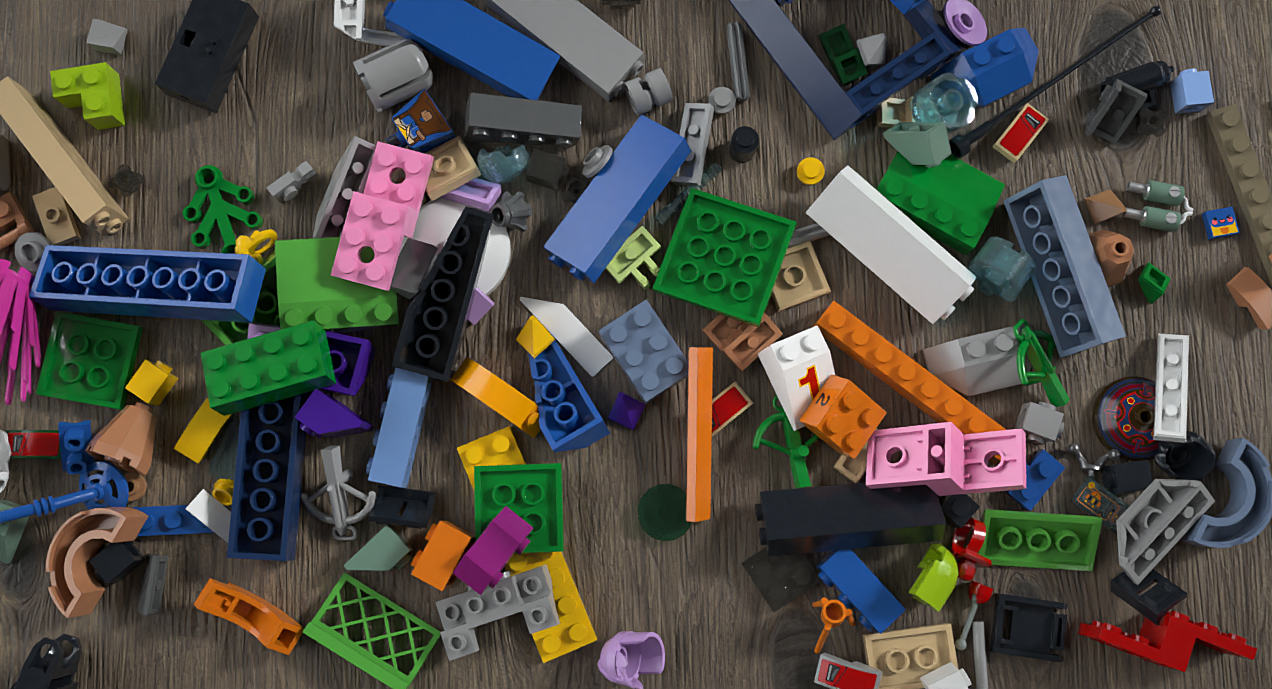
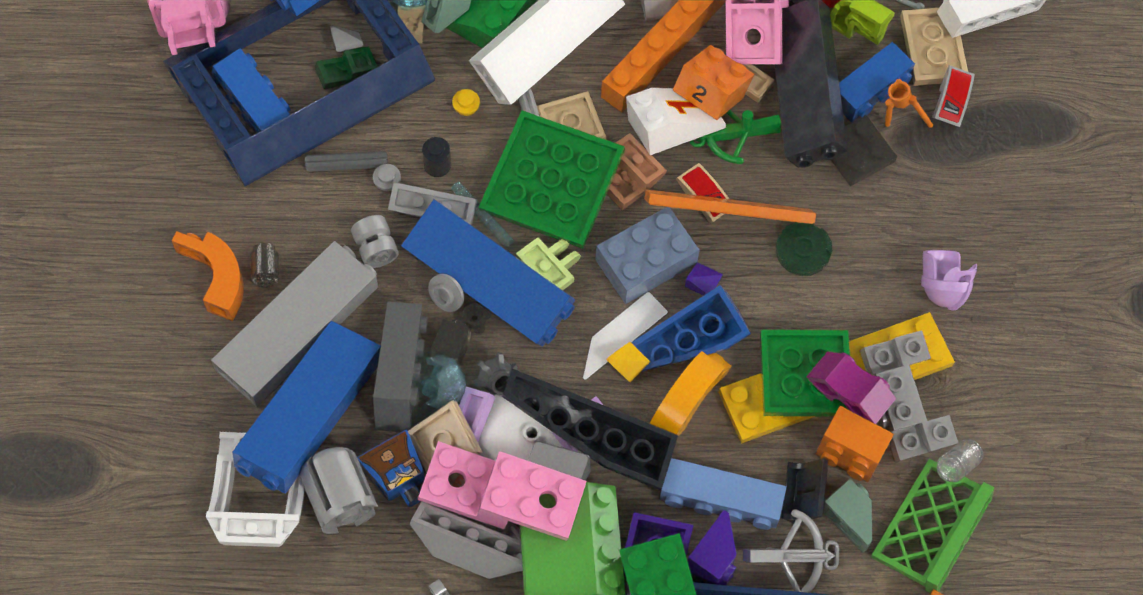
camera: 90 degrees left, 15 degrees down
(432, 661) = (959, 460): none -> clear head

